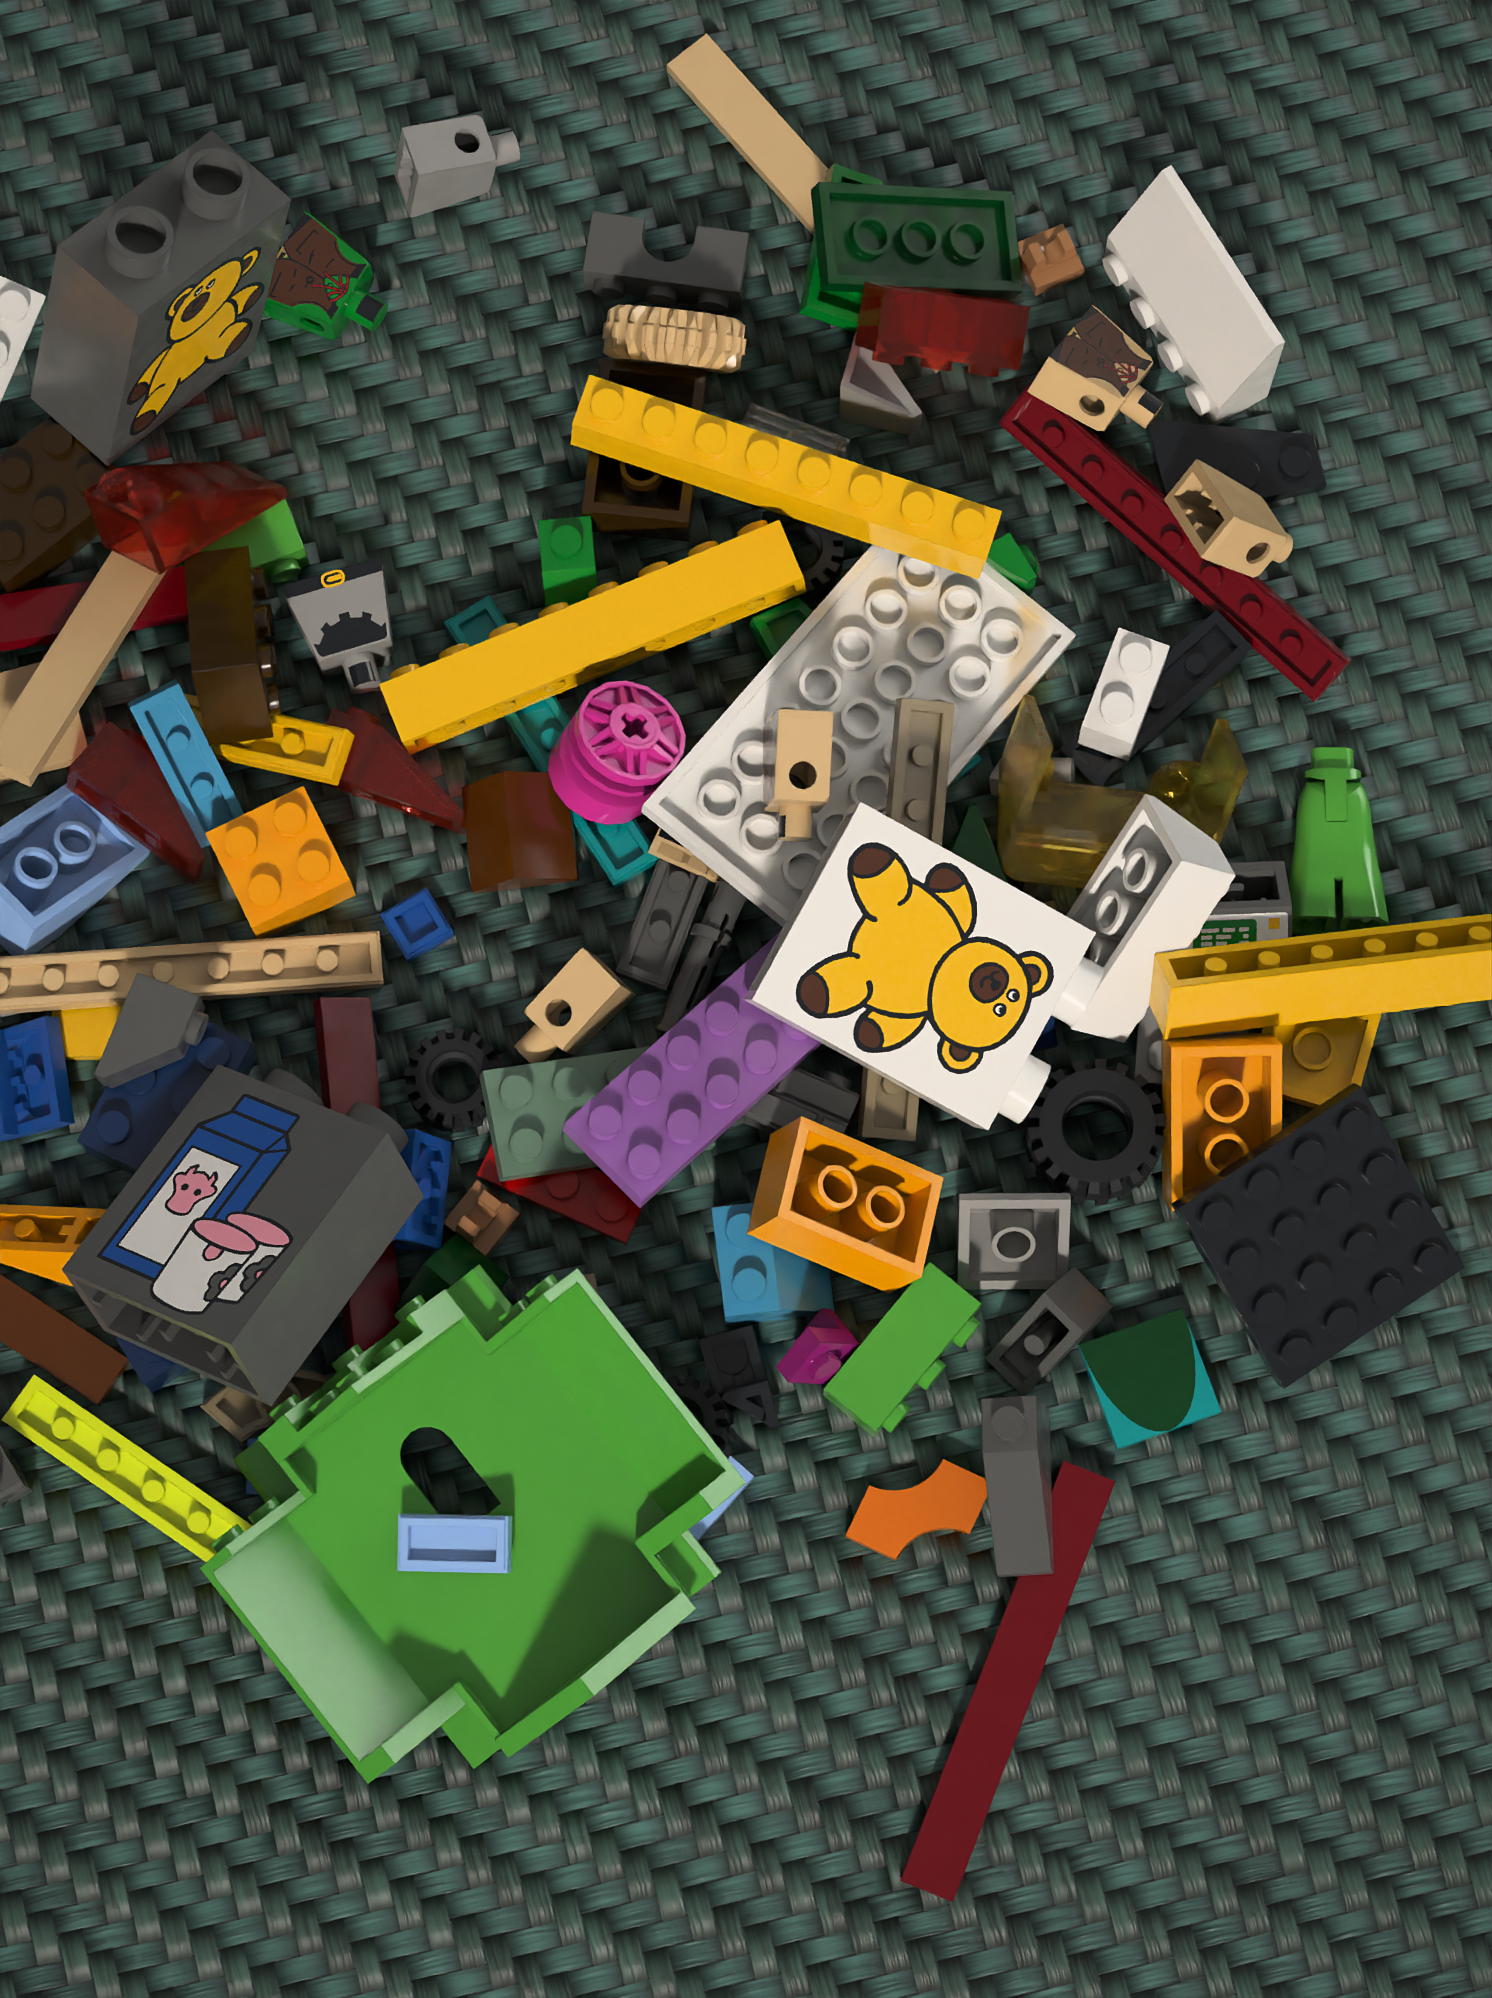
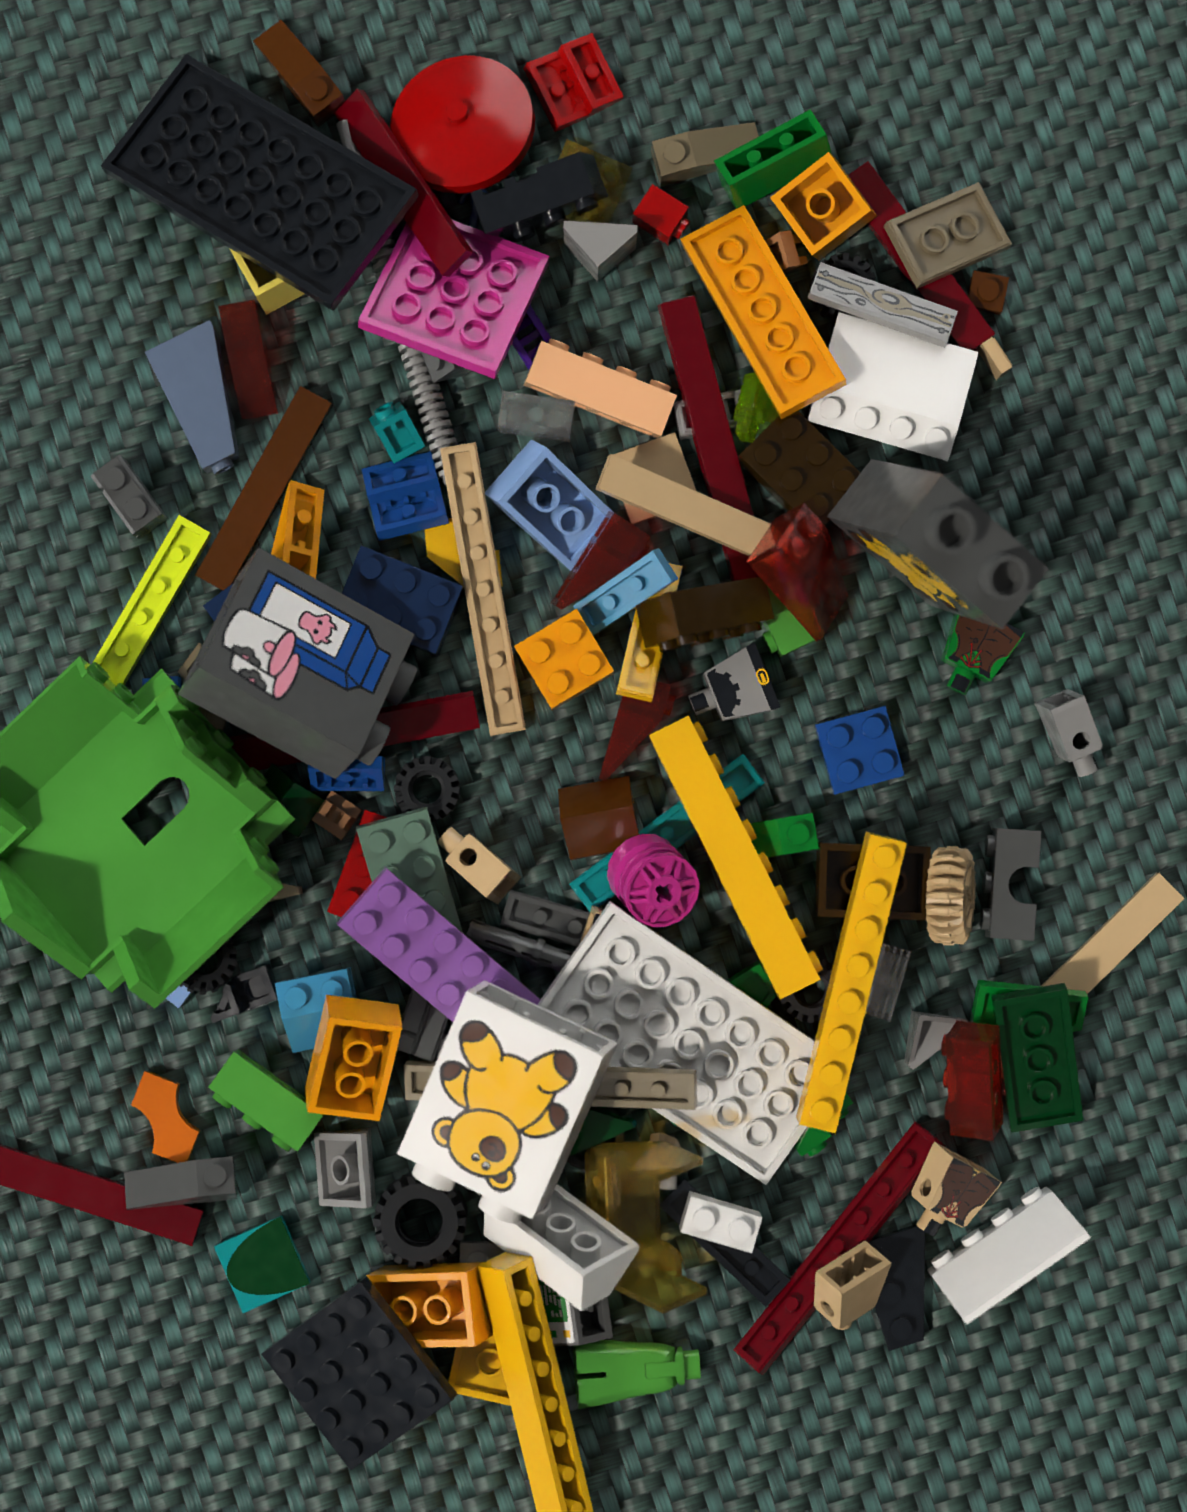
camera: 85 degrees right, 10 degrees up
(151, 1031) = (433, 588): dark grey slope -> none
(417, 925) = (533, 754): blue tile -> none
(454, 461) = (859, 750): none -> blue plate
(454, 1543) = (113, 818): light blue tile -> none
(800, 747) = (654, 1004): tan torso -> none
(818, 1350) = (262, 1048): magenta bracket -> none
(1049, 259) = (1038, 1149): medium nougat tile -> none
(1049, 1331) = (287, 1197): dark grey slope -> none

